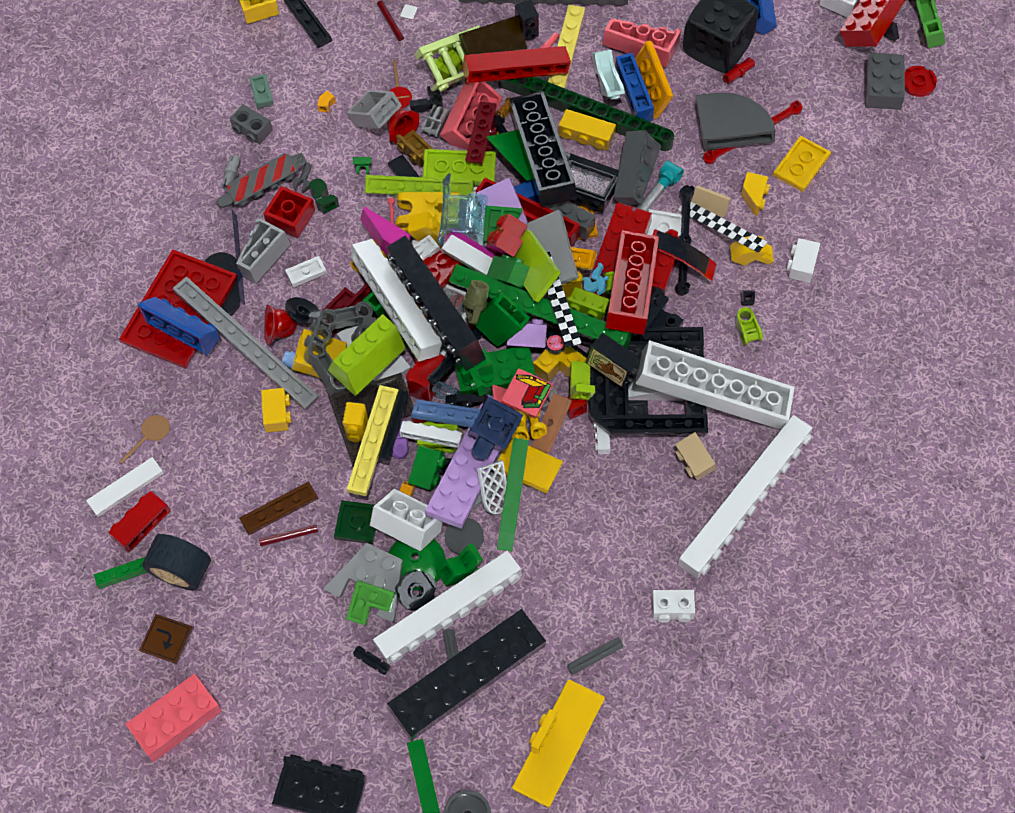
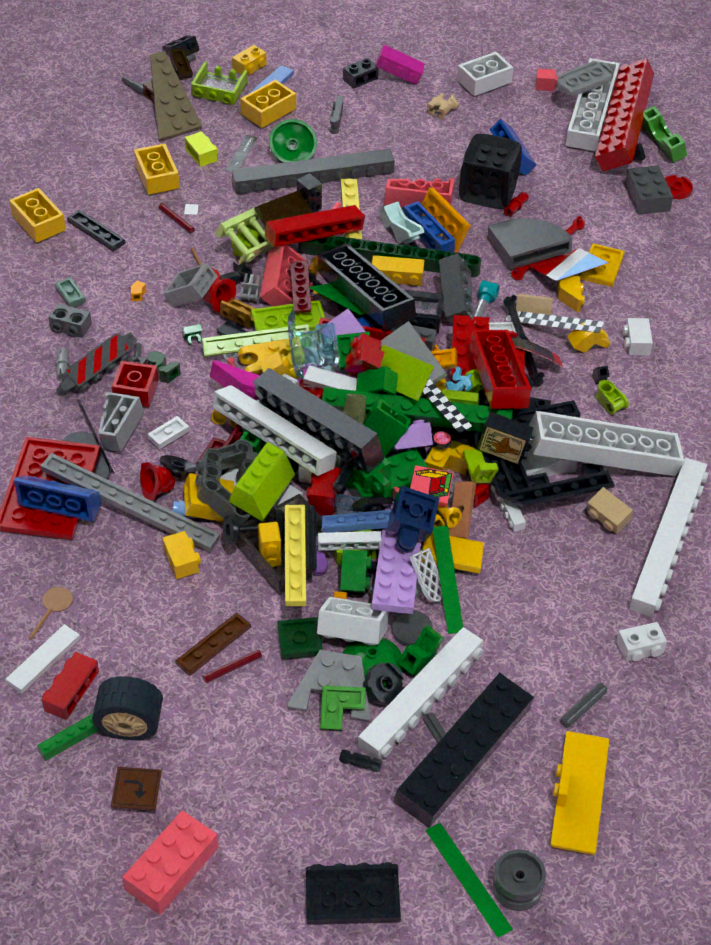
camera: 20 degrees left, 15 degrees down
(324, 398) = (232, 530): none -> black piece
(763, 158) = (567, 264): none -> sticker

